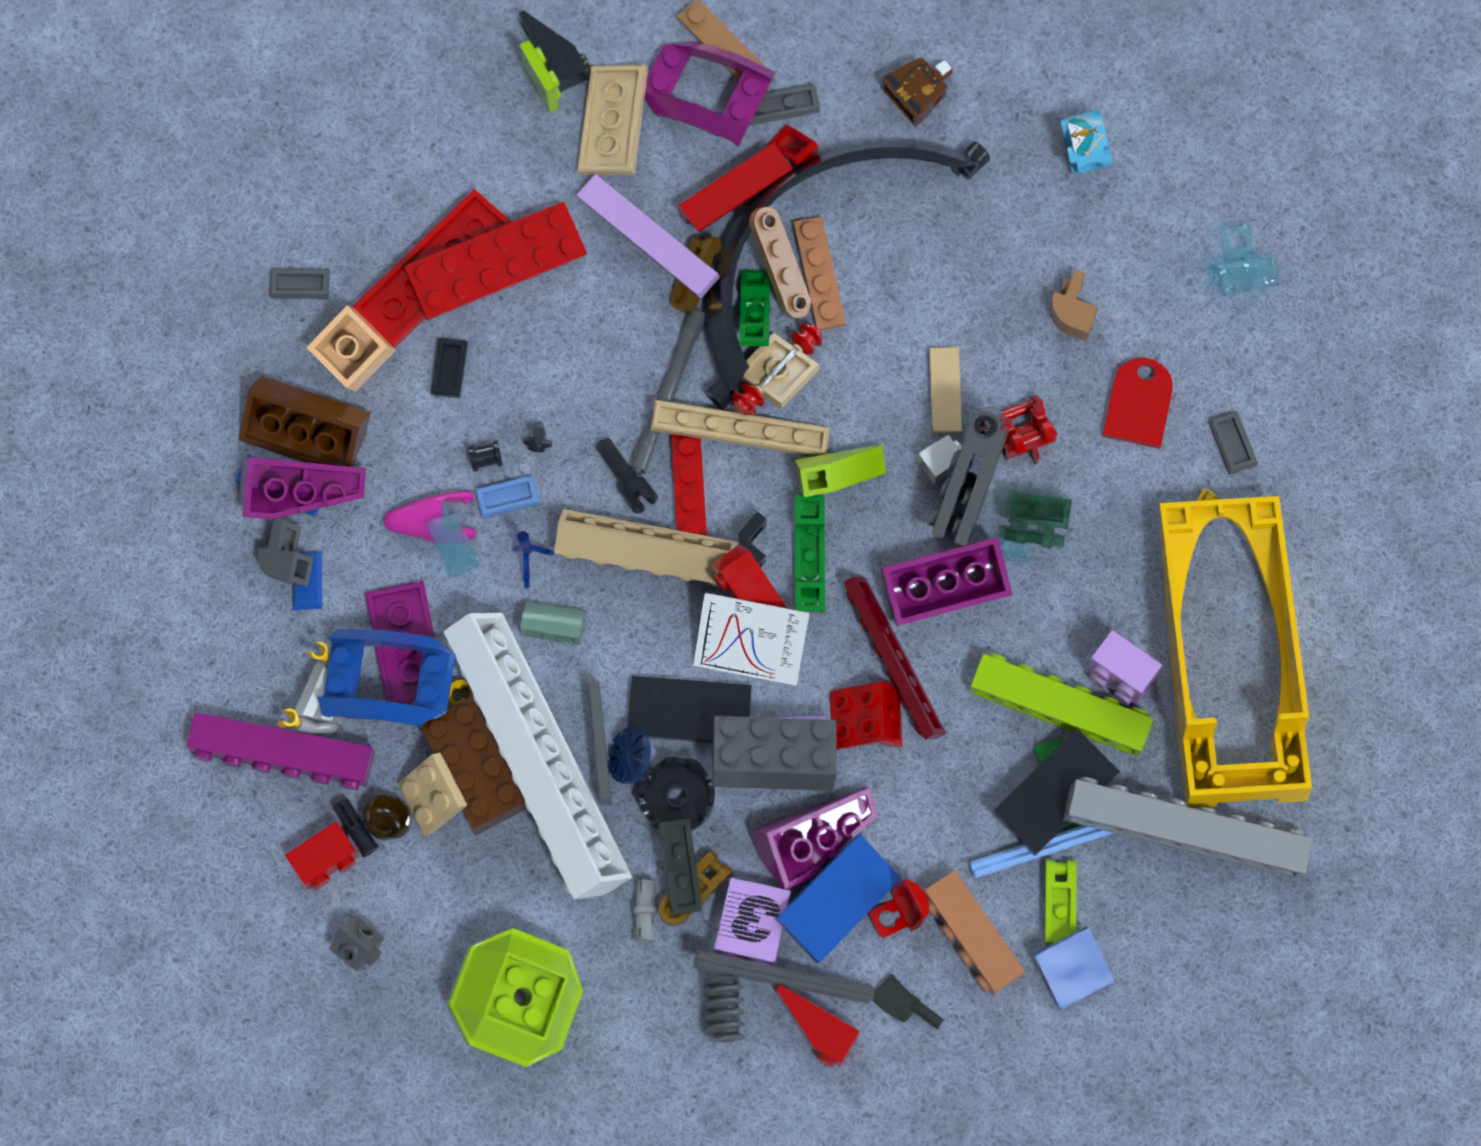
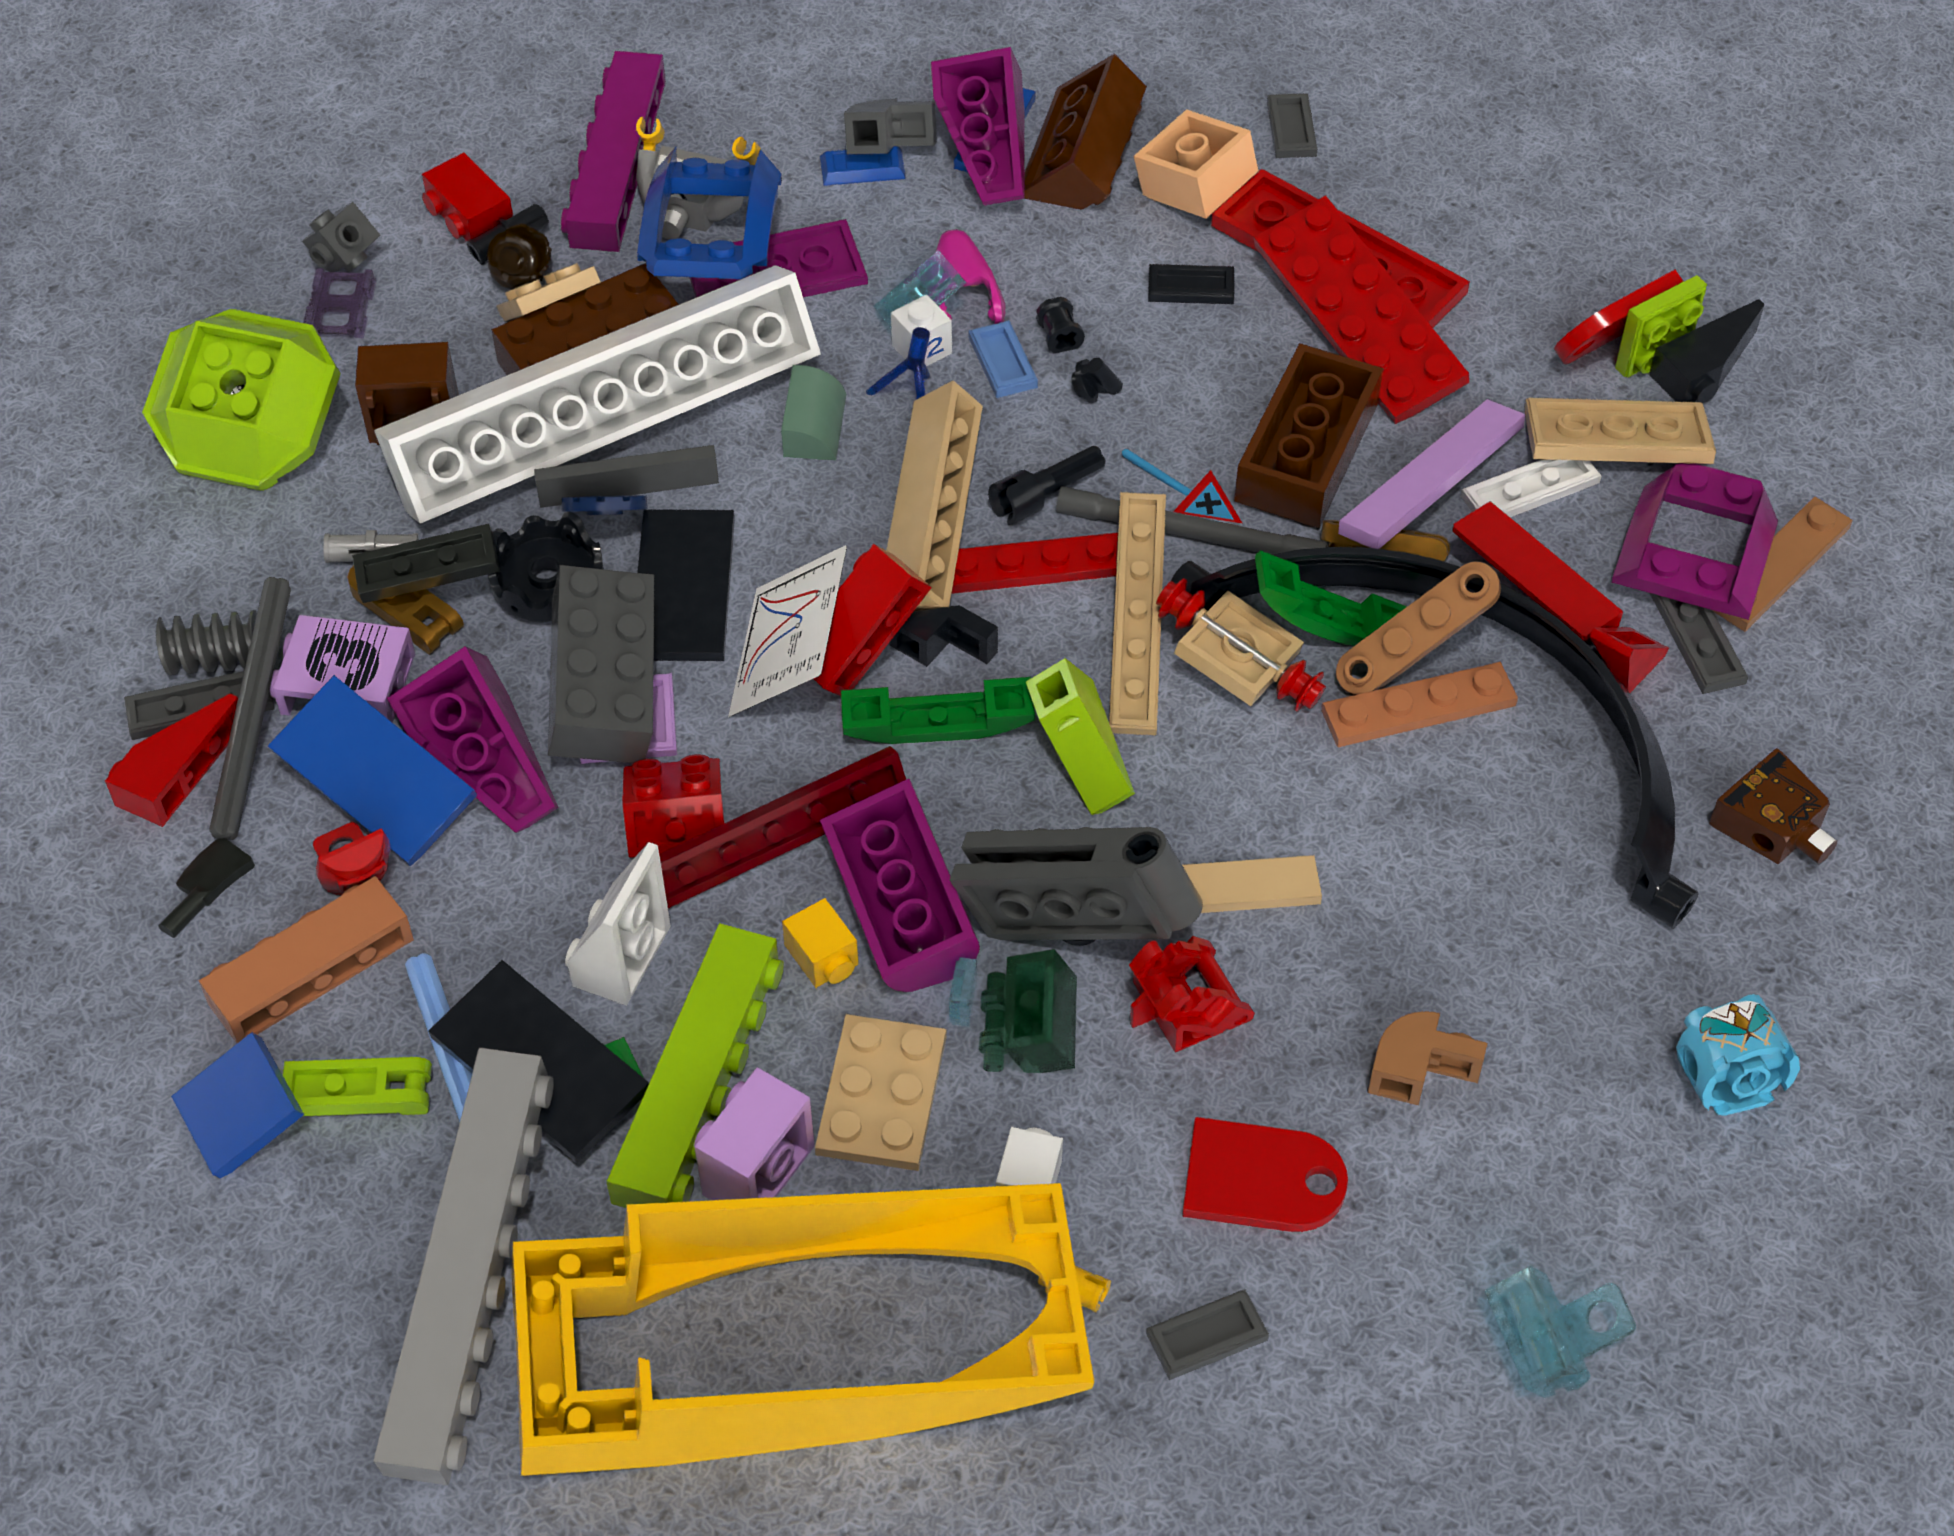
camera: 85 degrees right, 20 degrees down
(409, 957) = (355, 303): none -> clear purple piece
(489, 545) = (924, 314): none -> white brick
(524, 885) = (402, 381): none -> reddish brown container
(529, 102) = (1609, 321): none -> red tile
(607, 306) = (1308, 435): none -> reddish brown brick
(643, 381) = (1203, 501): none -> piece
(652, 185) = (1532, 485): none -> white tile
(764, 1022) = (160, 708): none -> dark grey tile
(974, 742) = (622, 931): none -> white slope
(979, 631) = (821, 943): none -> yellow brick
(1075, 603) = (881, 1092): none -> tan plate
(1135, 524) = (1030, 1158): none -> white brick

